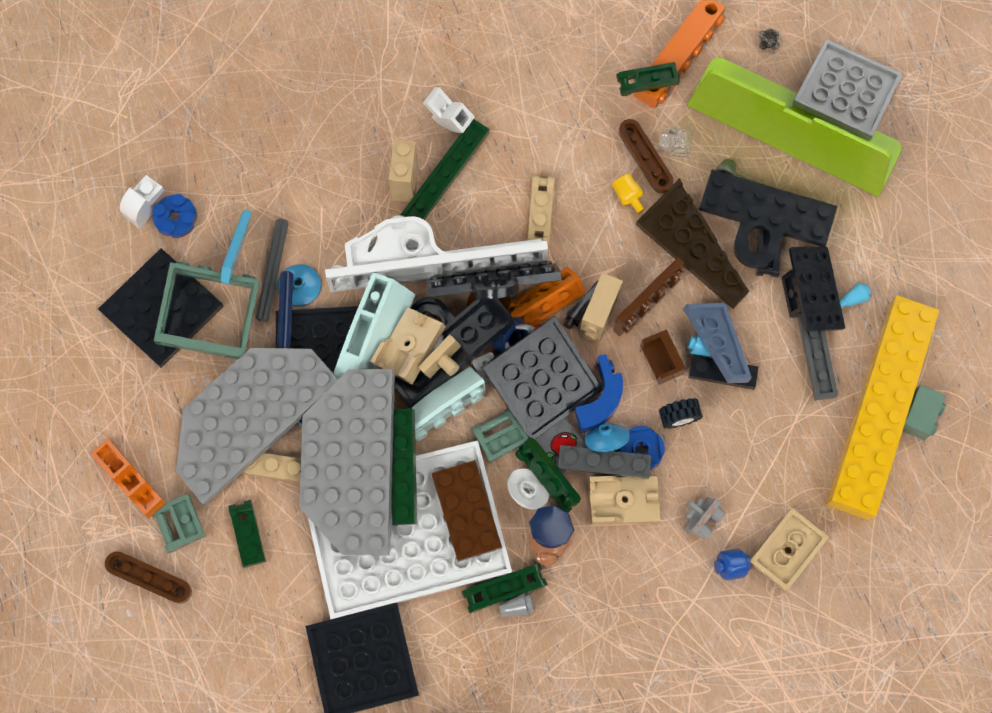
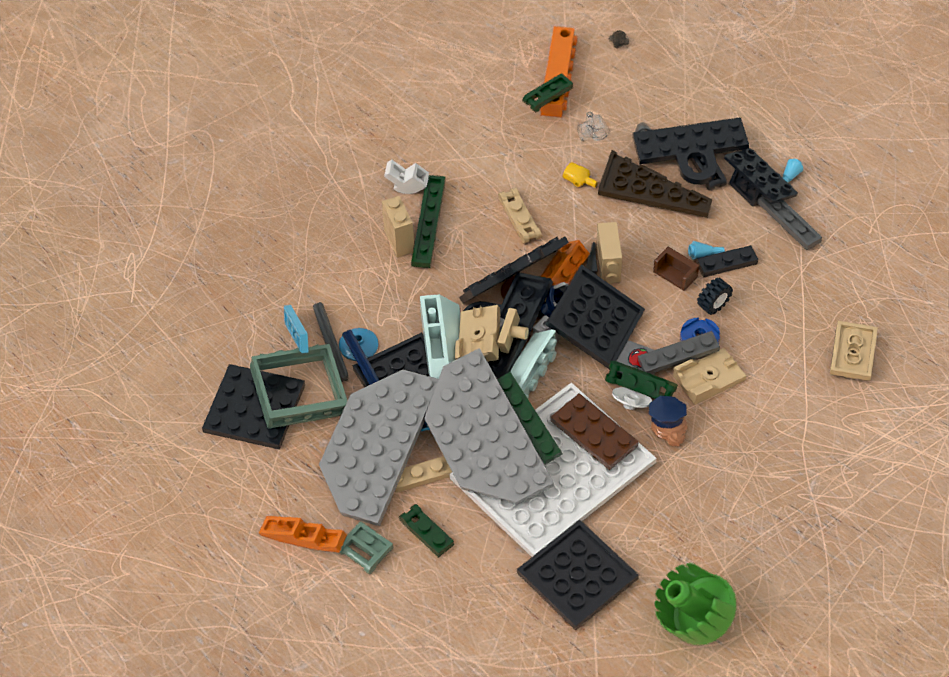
camera: 25 degrees left, 20 degrees down
(137, 201) = (192, 337): white brick -> none
(148, 577) = (364, 596): reddish brown plate -> none
(169, 205) = (225, 329): blue plate -> none
(409, 254) = (439, 266): white piece -> none
(502, 441) = (589, 377): sand green plate -> none
(504, 588) = (656, 474): dark green plate -> none
(518, 606) = (677, 479): light grey cone -> none
(601, 410) = (650, 326): blue arch -> none
(607, 437) = (669, 335): dark azure dish -> none
(645, 155) = (576, 147): reddish brown plate -> none
(653, 293) = (641, 231): reddish brown plate -> none
(700, 513) = (772, 357): light grey hips -> none
(720, 338) = (710, 235): sand blue wing -> none
(732, 564) = (819, 378): blue head -> none
(767, 114) = (675, 80): lime piece -> none
(847, 89) = (698, 45): light grey plate -> none
(882, 408) = (860, 232): yellow brick -> none
(923, 412) = (889, 222): sand green brick -> none

